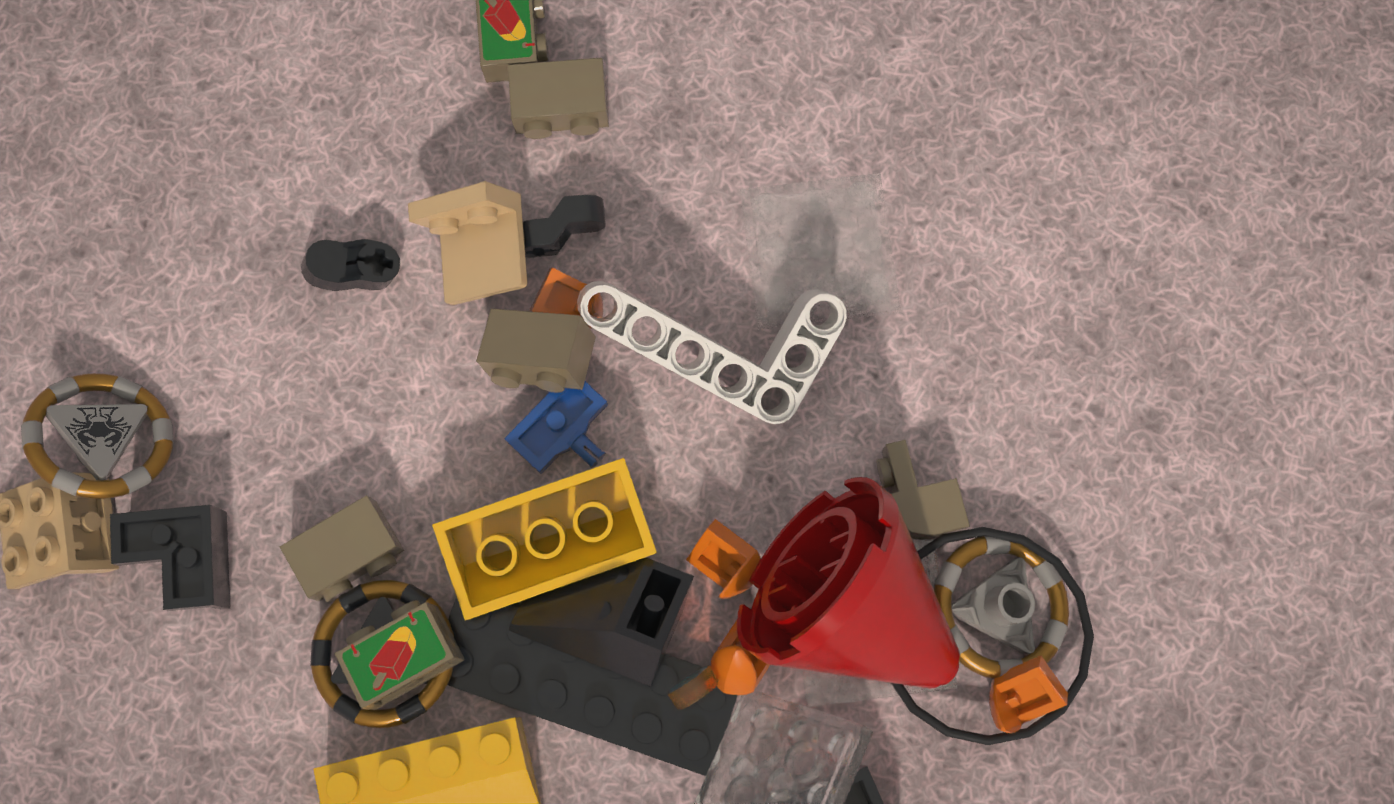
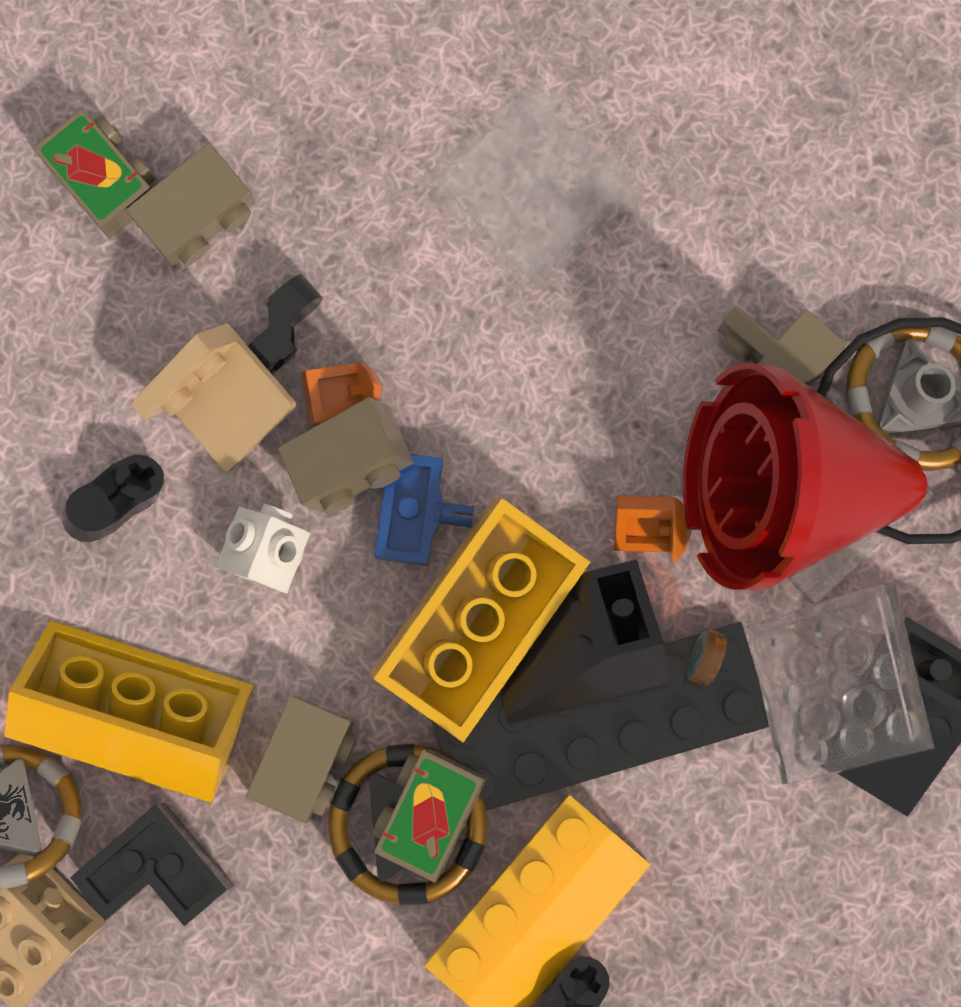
camera: 35 degrees left, 5 degrees up
(246, 425) = (127, 710): none -> yellow slope
(429, 375) = (263, 547): none -> white brick
(714, 356) = (514, 351): white beam -> none
(736, 667) = (727, 609): orange plate -> none

